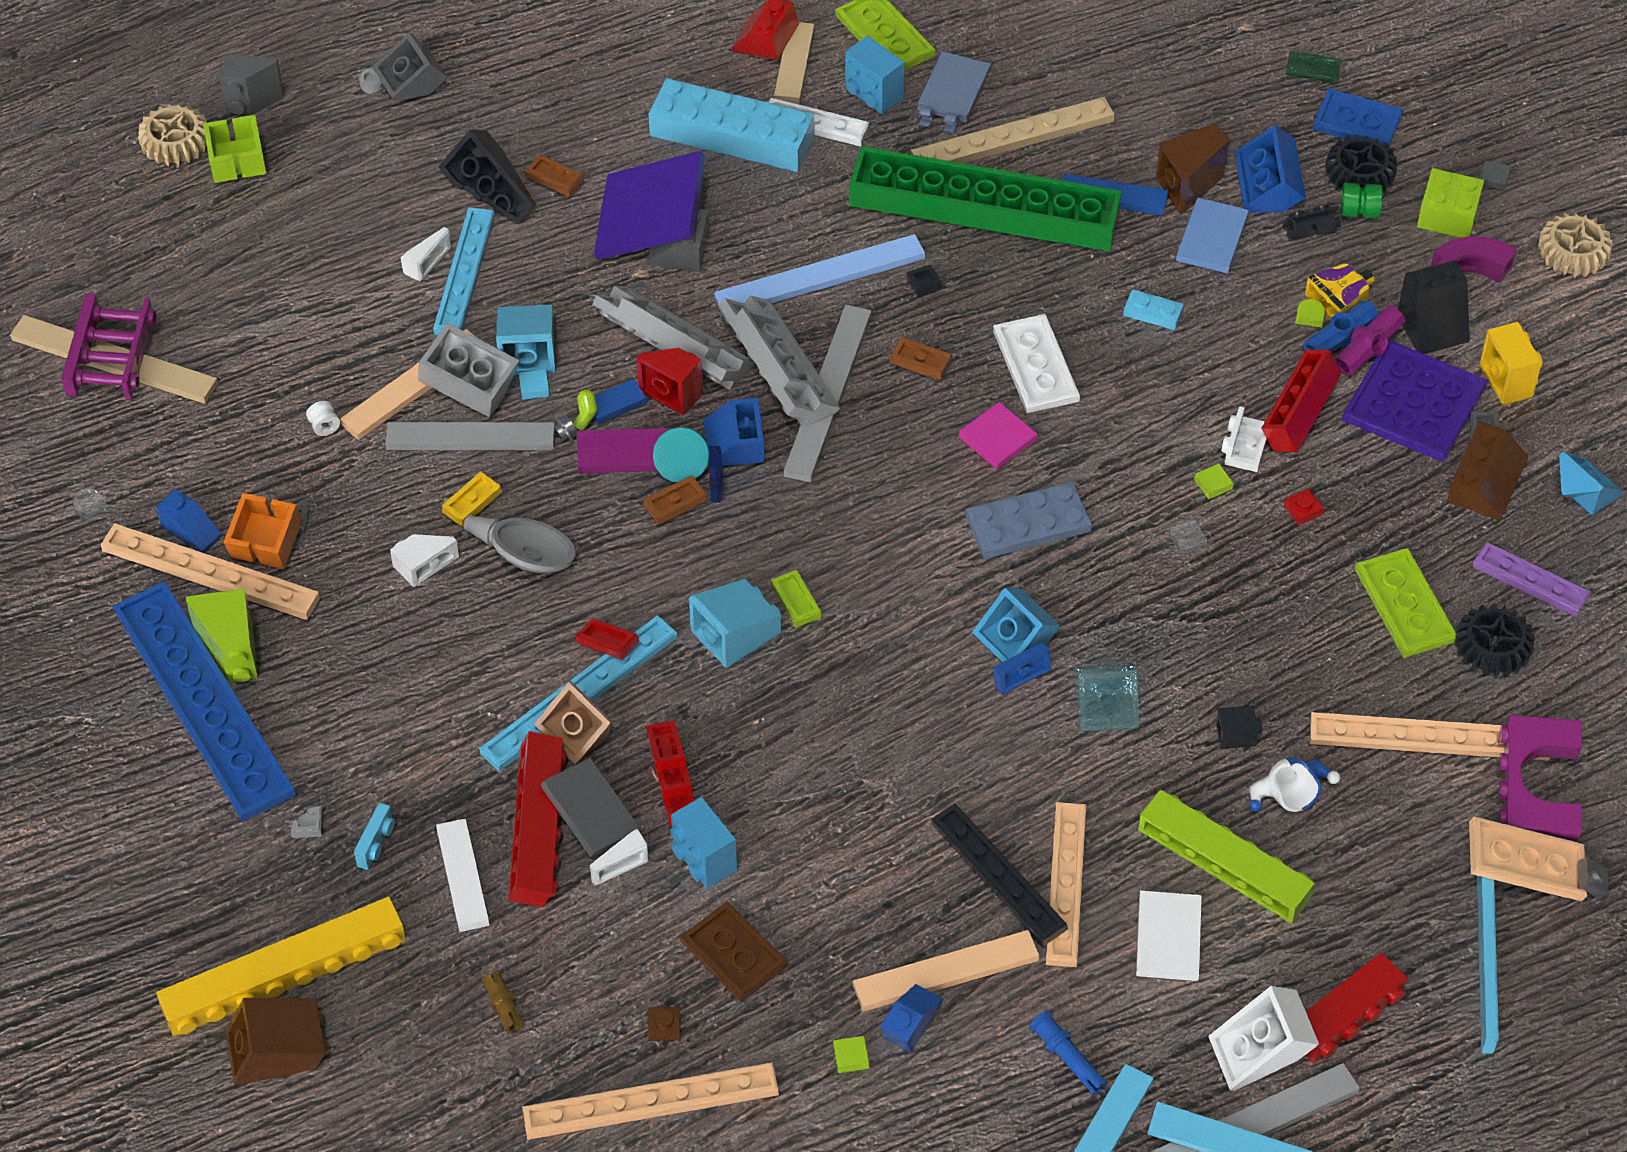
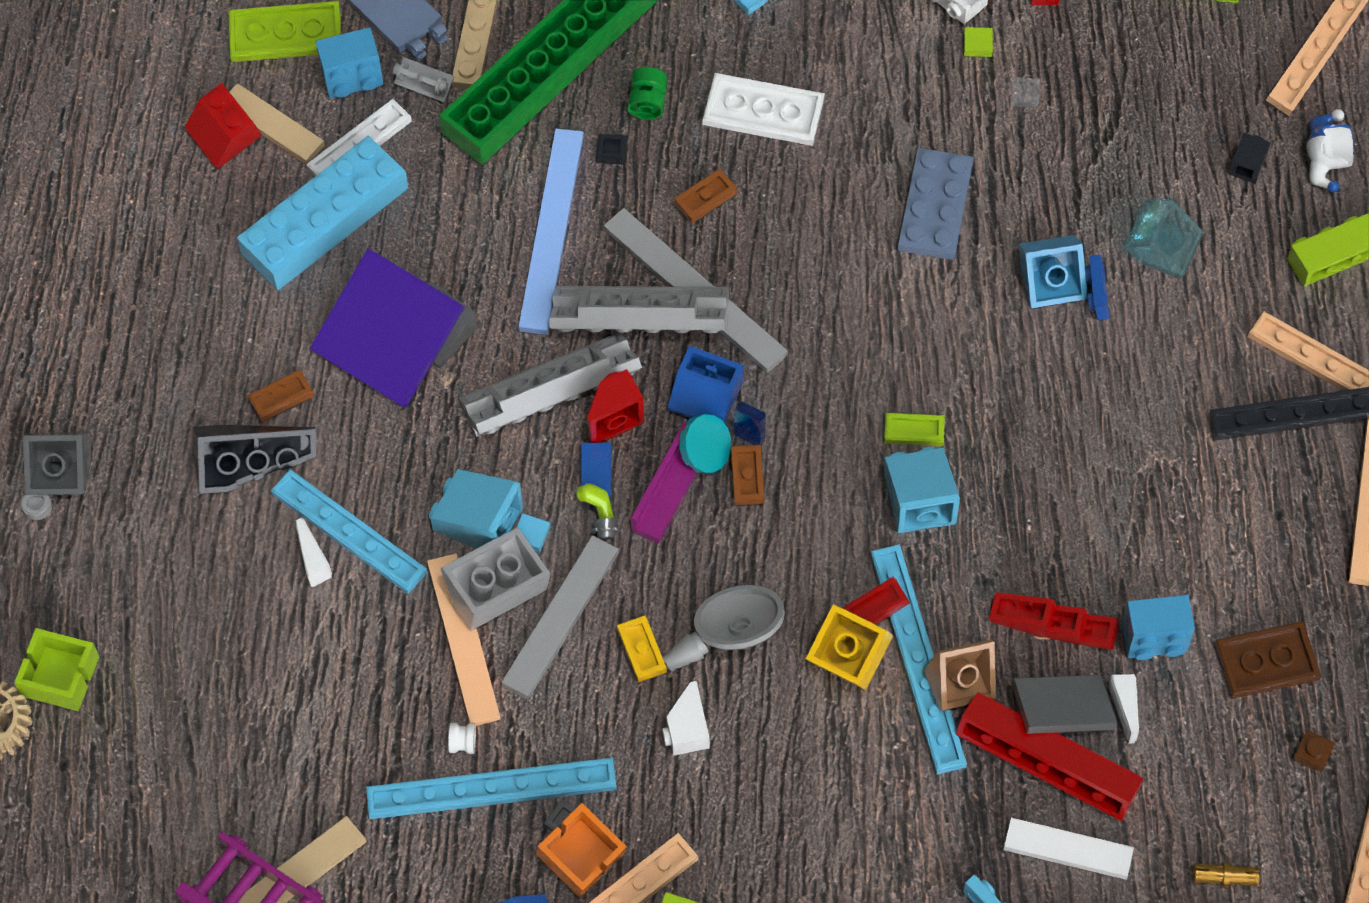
camera: 60 degrees left, 10 degrees up
(295, 461) = (491, 788): none -> medium azure tile
(550, 630) = (849, 647): none -> yellow brick
(900, 129) = (423, 79): none -> light grey hinge
(992, 274) = (647, 93): none -> green wheel
(998, 435) = (828, 179): dark pink tile -> none

